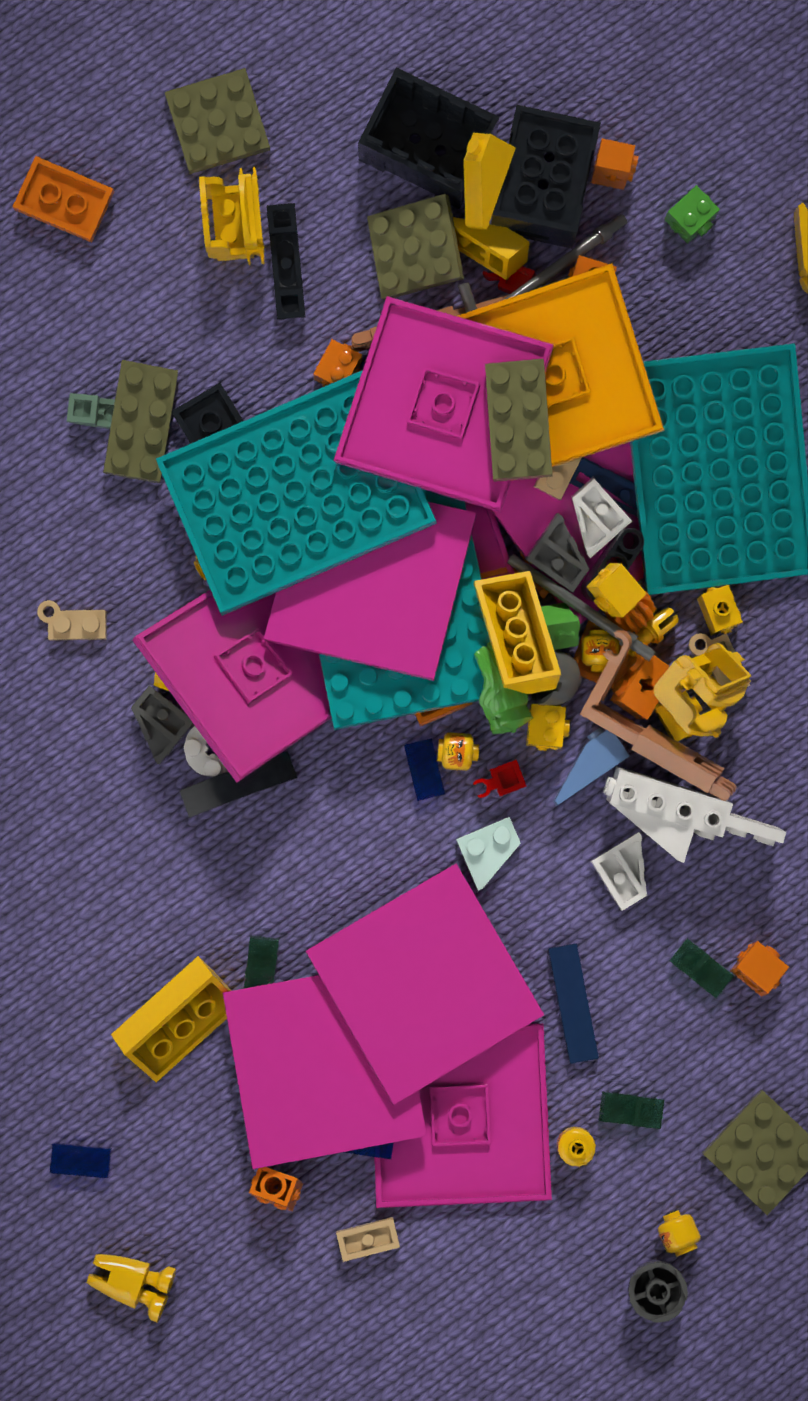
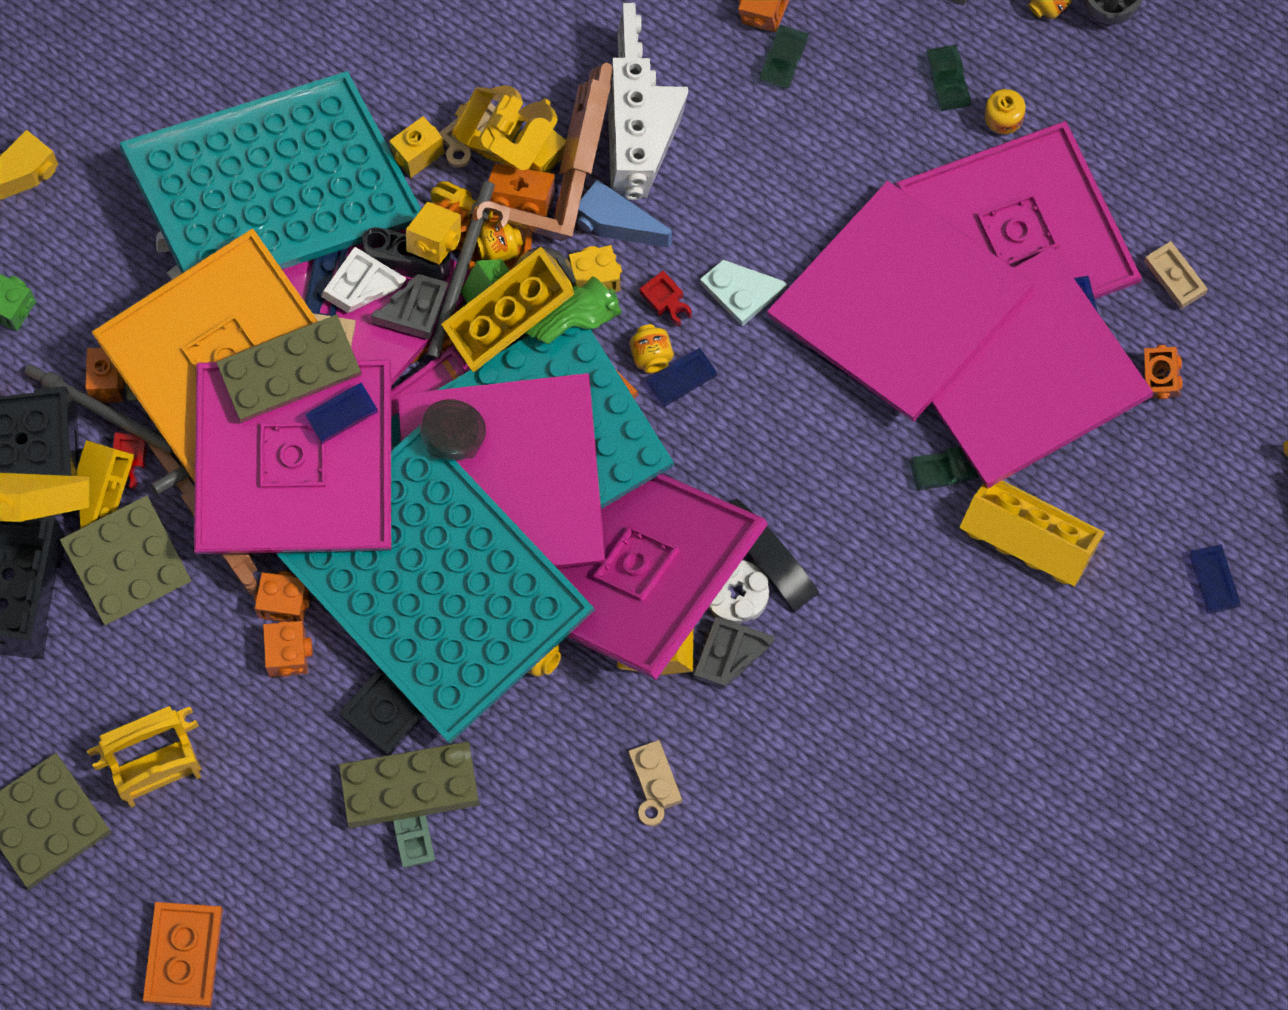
camera: 100 degrees left, 15 degrees down
(286, 261) = (188, 690): black slope -> none
(292, 357) = (286, 648): none -> orange head
(418, 544) = (452, 430): none -> clear smoke tile
(463, 453) = (341, 413): none -> clear blue tile
(573, 1003) = (864, 163): dark blue tile -> none
(623, 871) = (715, 156): white wing -> none

